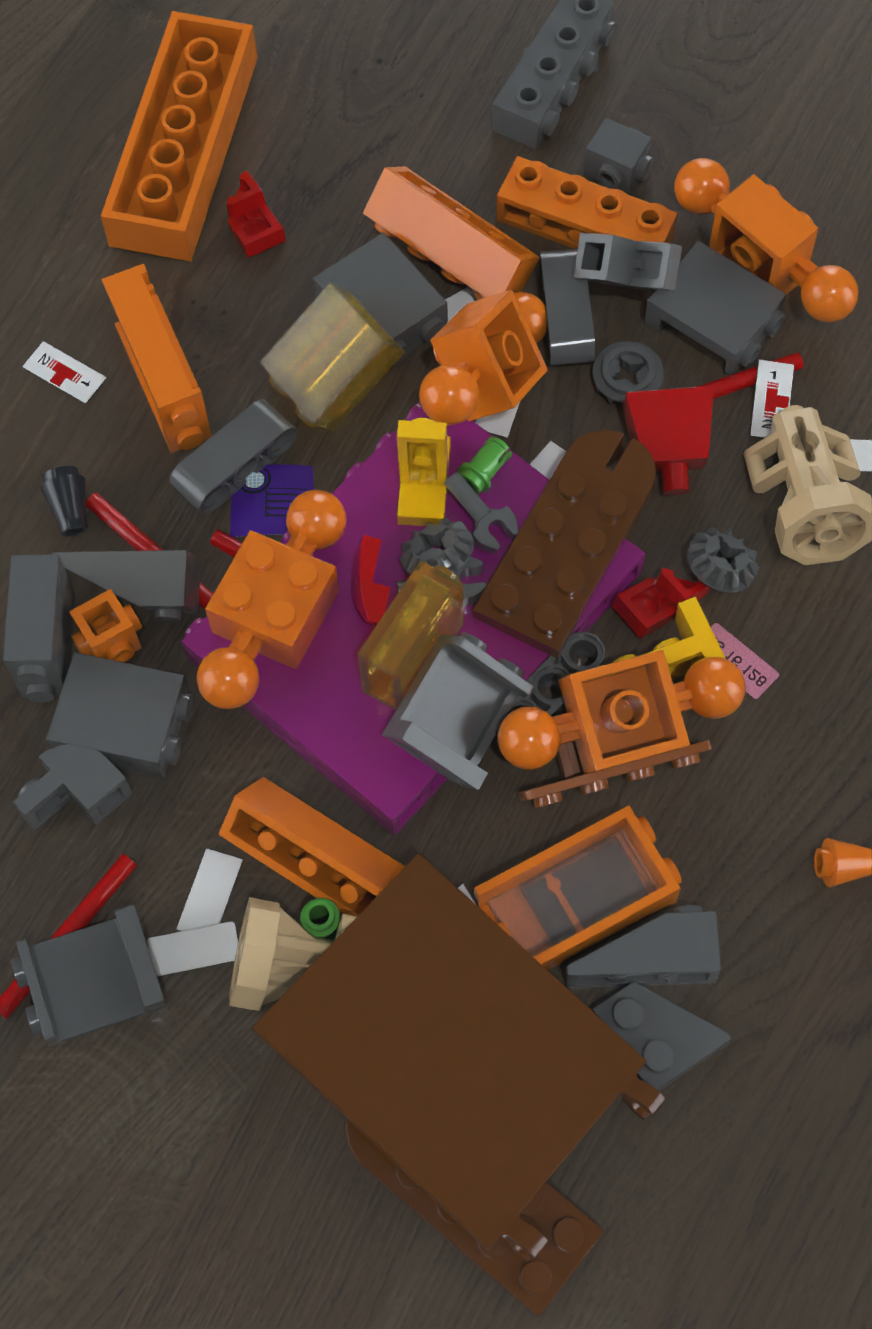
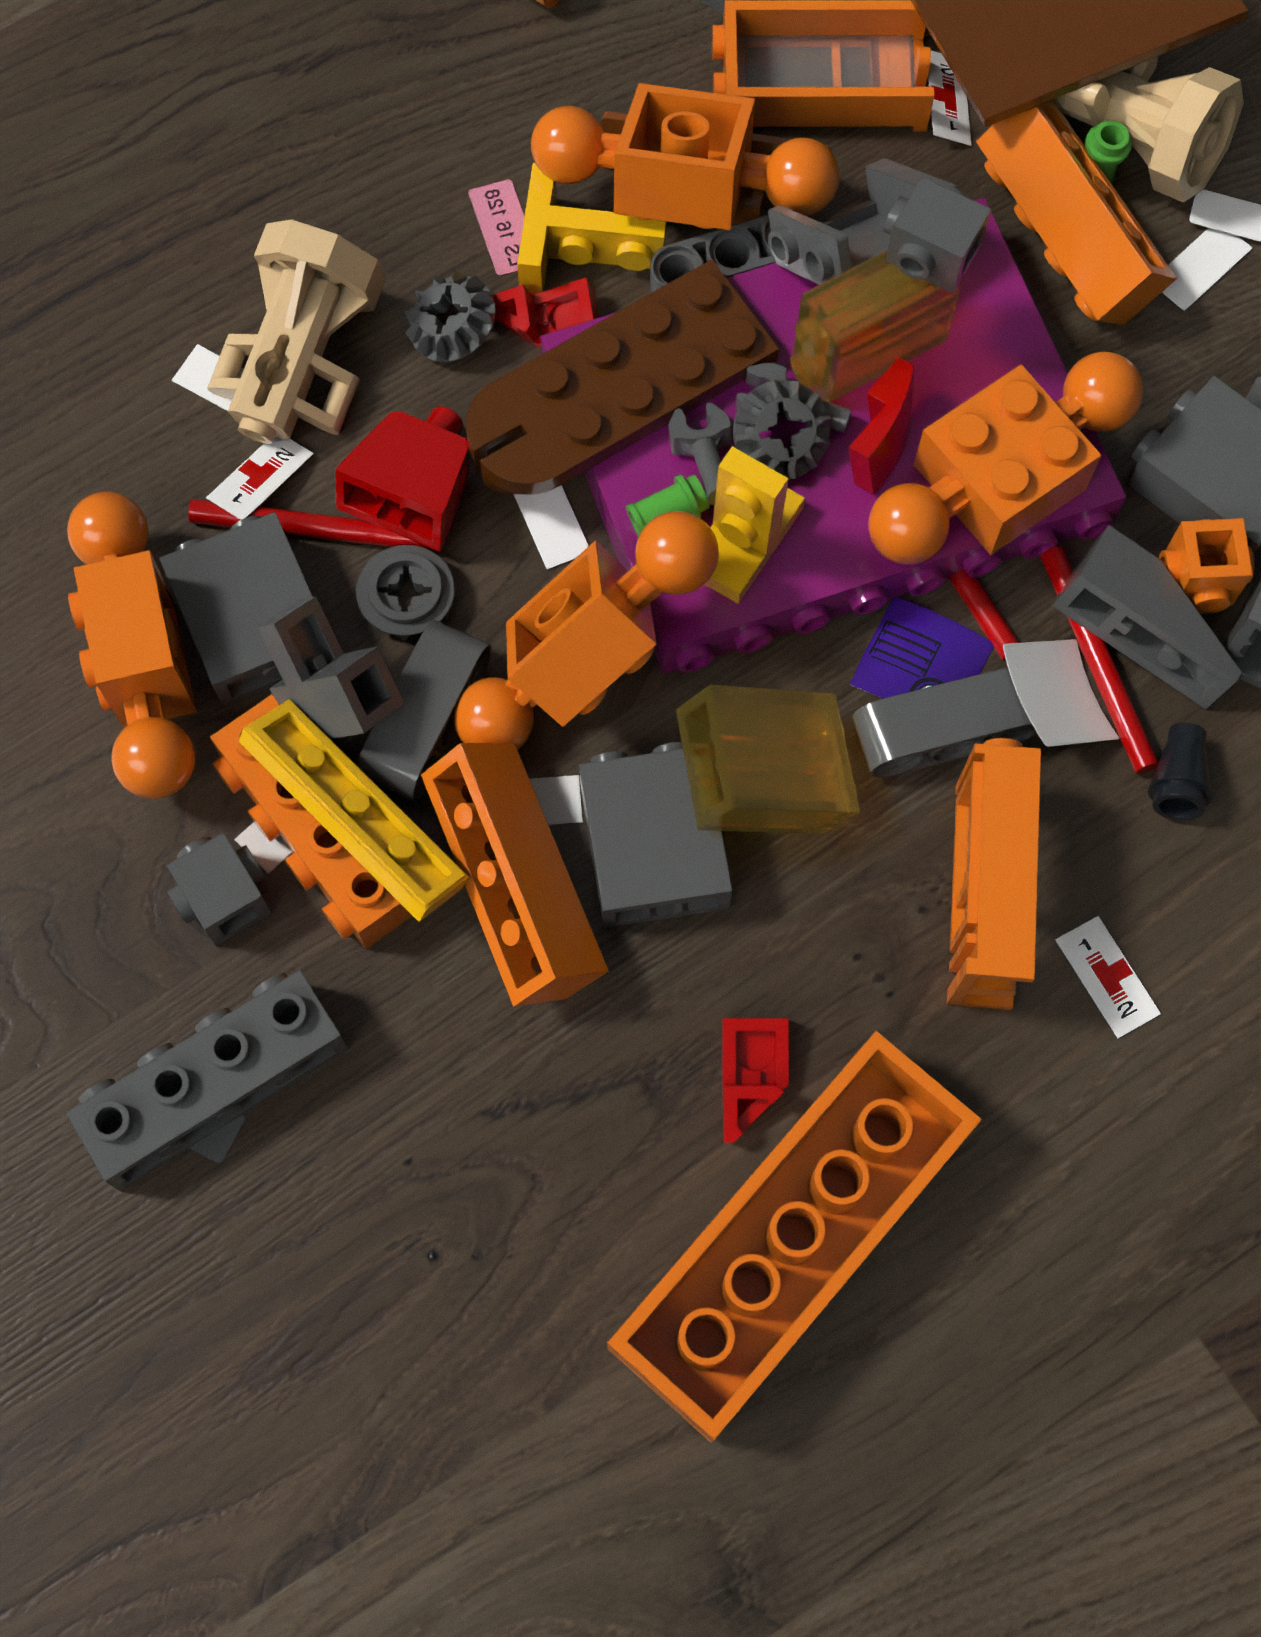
camera: 155 degrees left, 5 degrees up
(169, 503) = (1057, 692): none -> white sticker
(389, 648) = (935, 233): none -> dark grey brick
(561, 205) = (353, 809): none -> yellow tile

